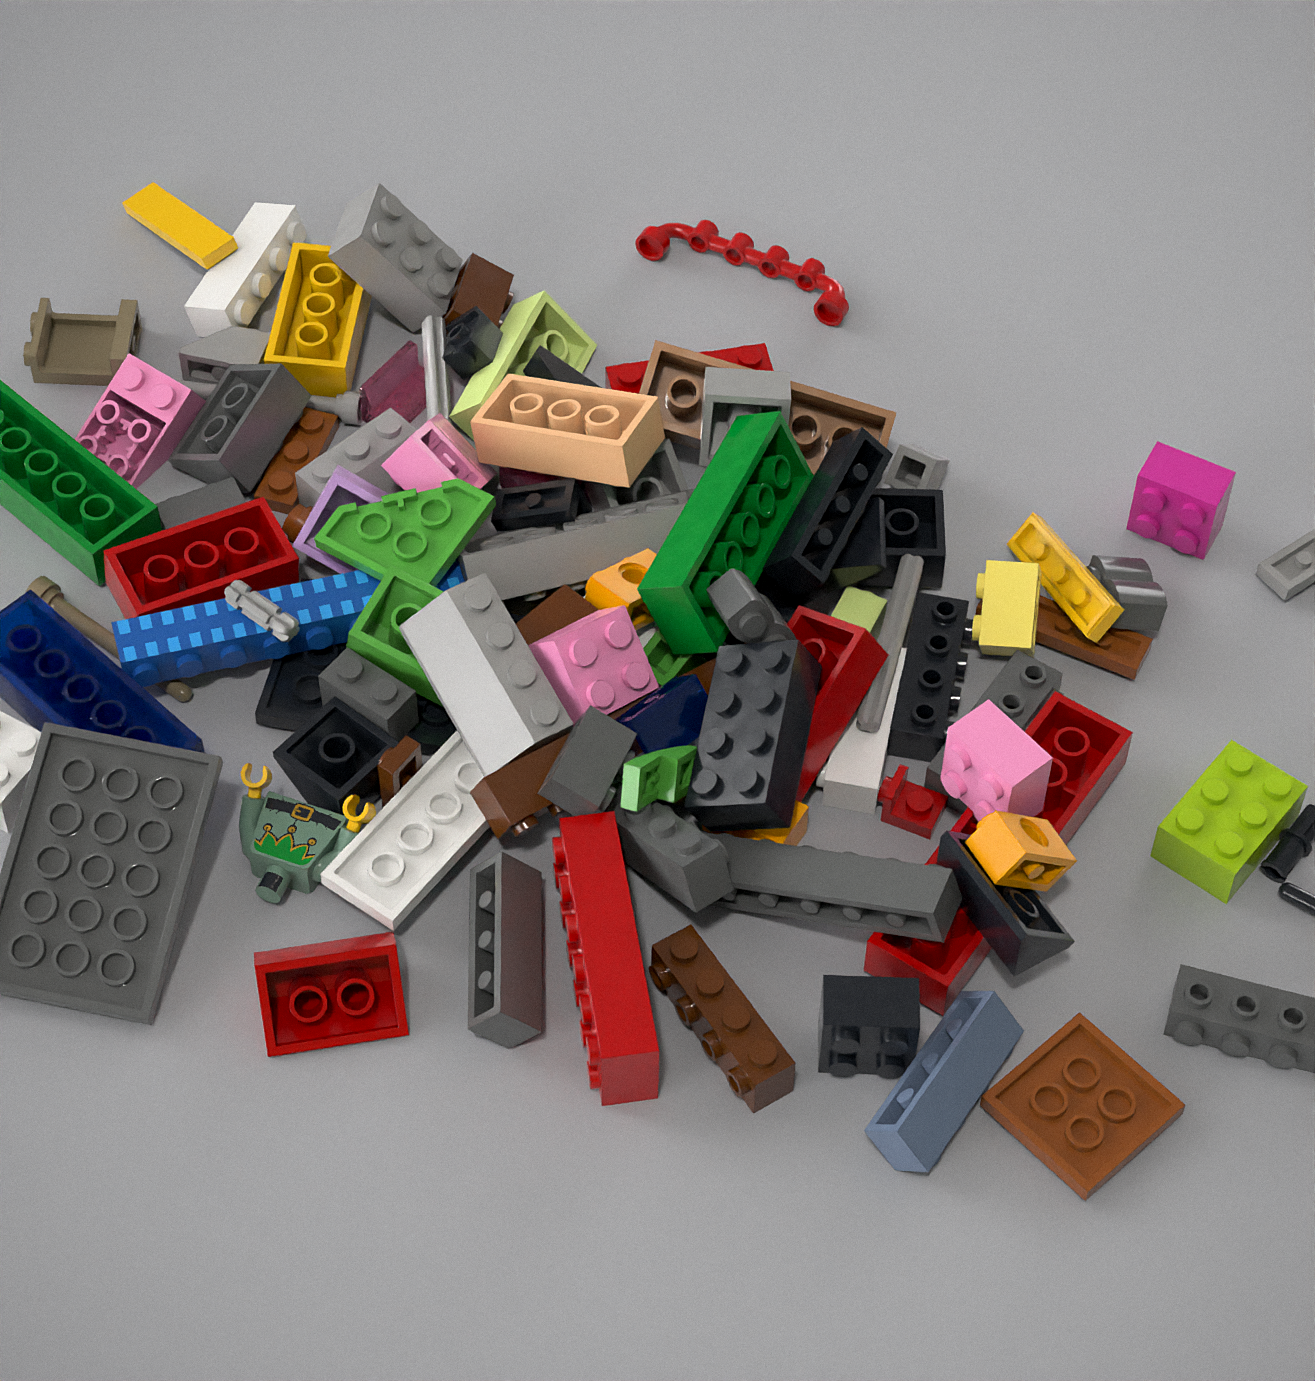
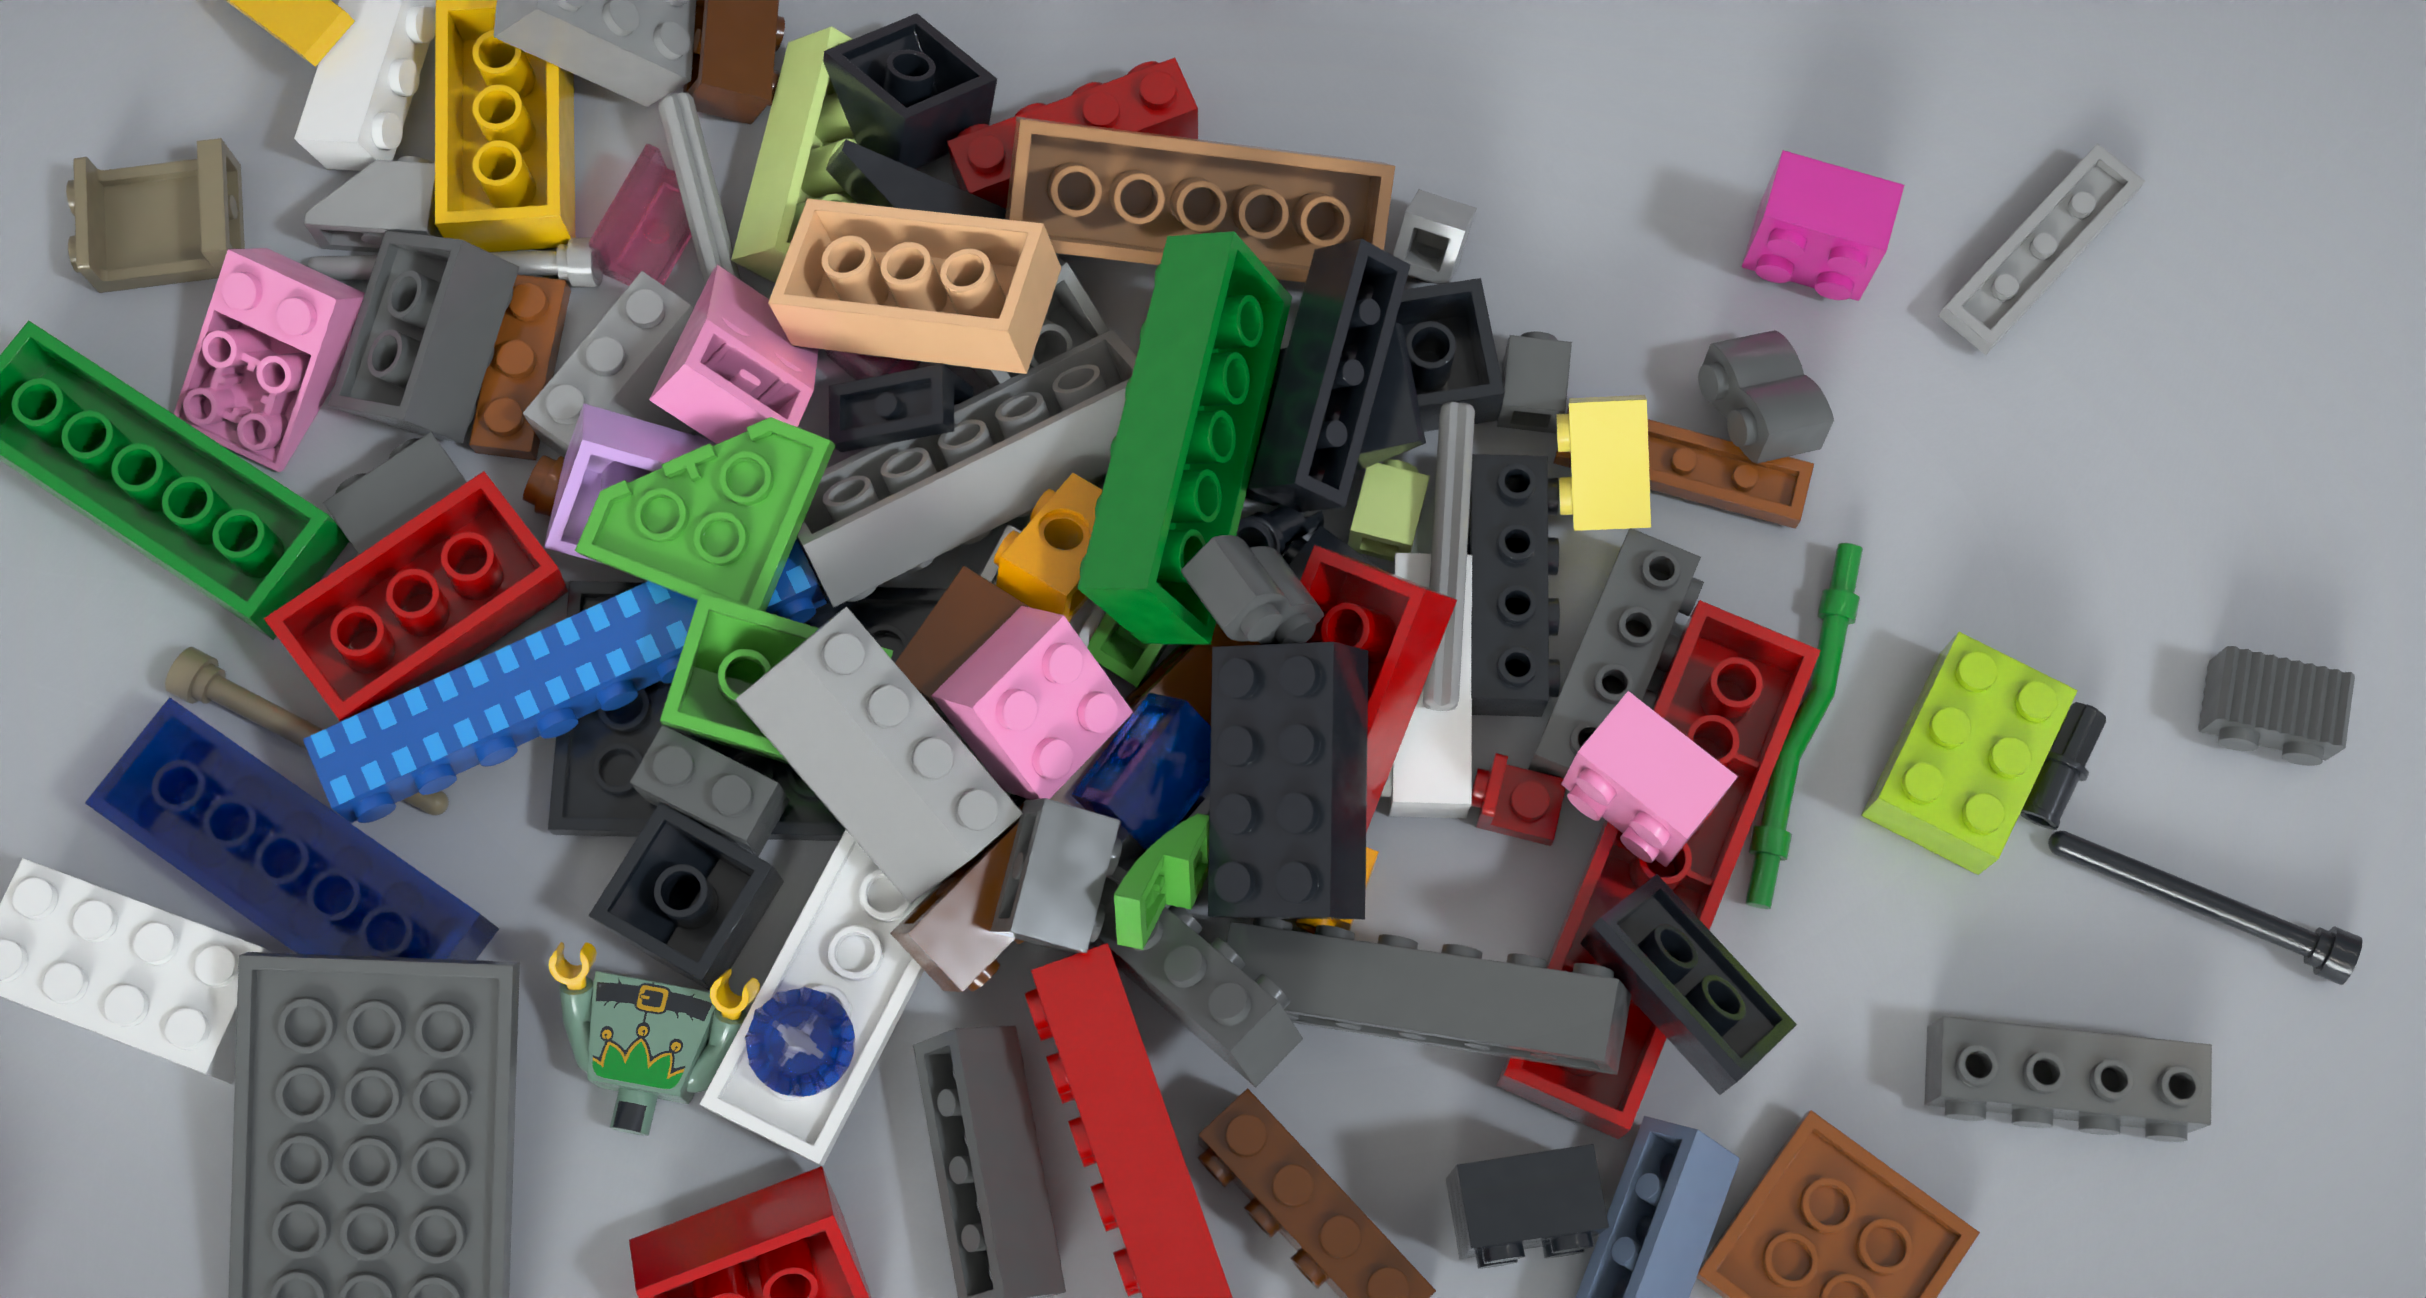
camera: 10 degrees left, 20 degrees up
(261, 610) = (522, 685): light grey axle -> none
(396, 861) = (804, 1073): none -> clear blue gear
(398, 767) = (777, 909): reddish brown plate -> none
(471, 342) = (739, 130): black brick -> none
(587, 335) = (909, 90): none -> black slope
(736, 393) = (1164, 198): light grey slope -> none
(964, 563) = (1534, 382): none -> dark grey brick
(1020, 851) = (1704, 913): light orange brick -> none
(1066, 577) = (1678, 390): yellow tile -> none
(1153, 731) = (1770, 840): none -> green bar

